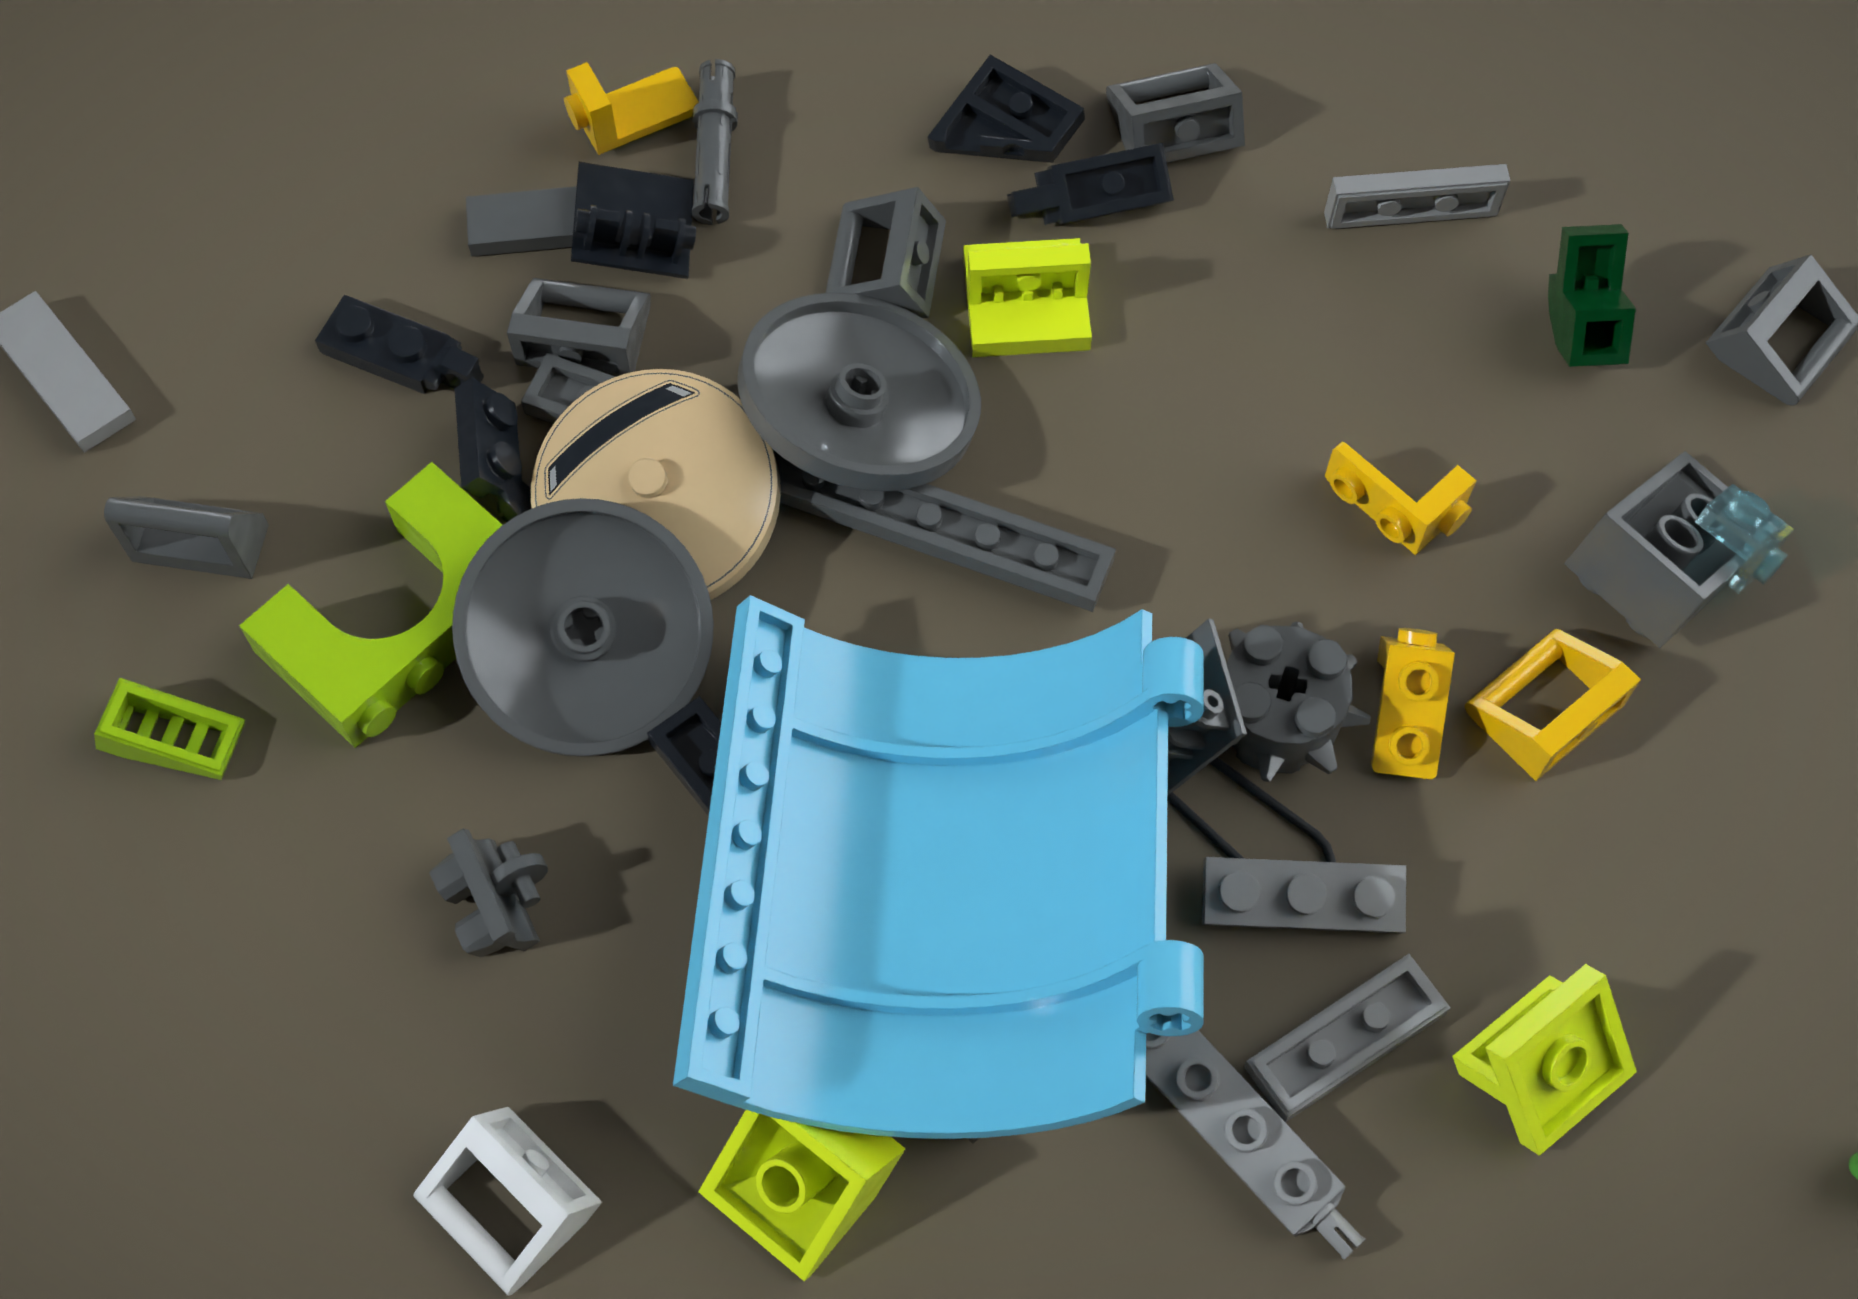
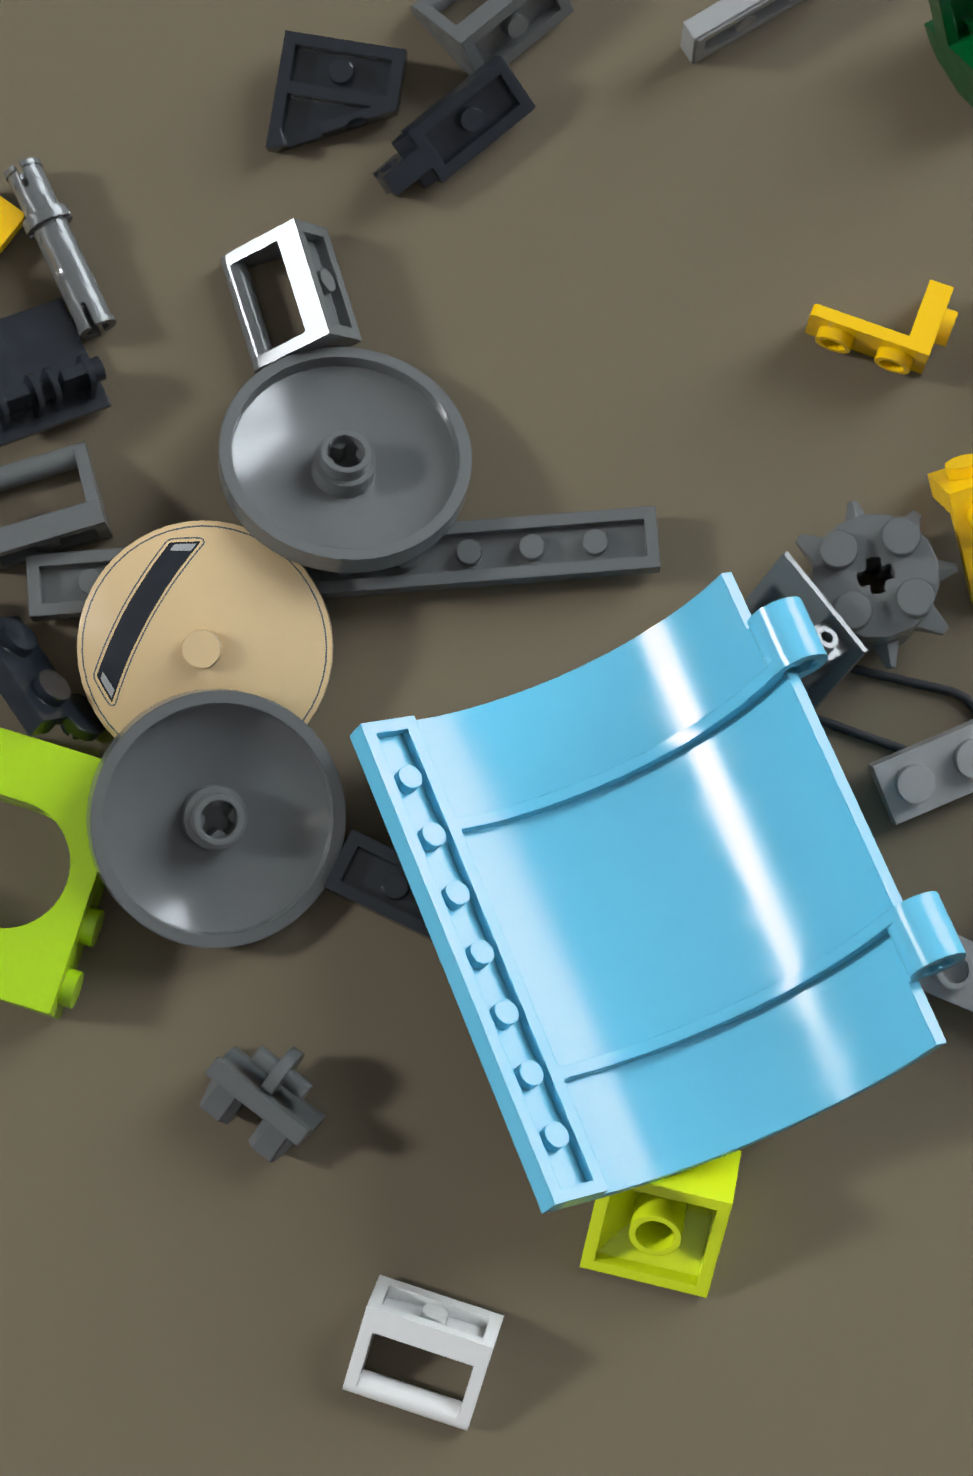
camera: 20 degrees left, 15 degrees up
(1028, 297) = (445, 274): neon yellow bracket -> none

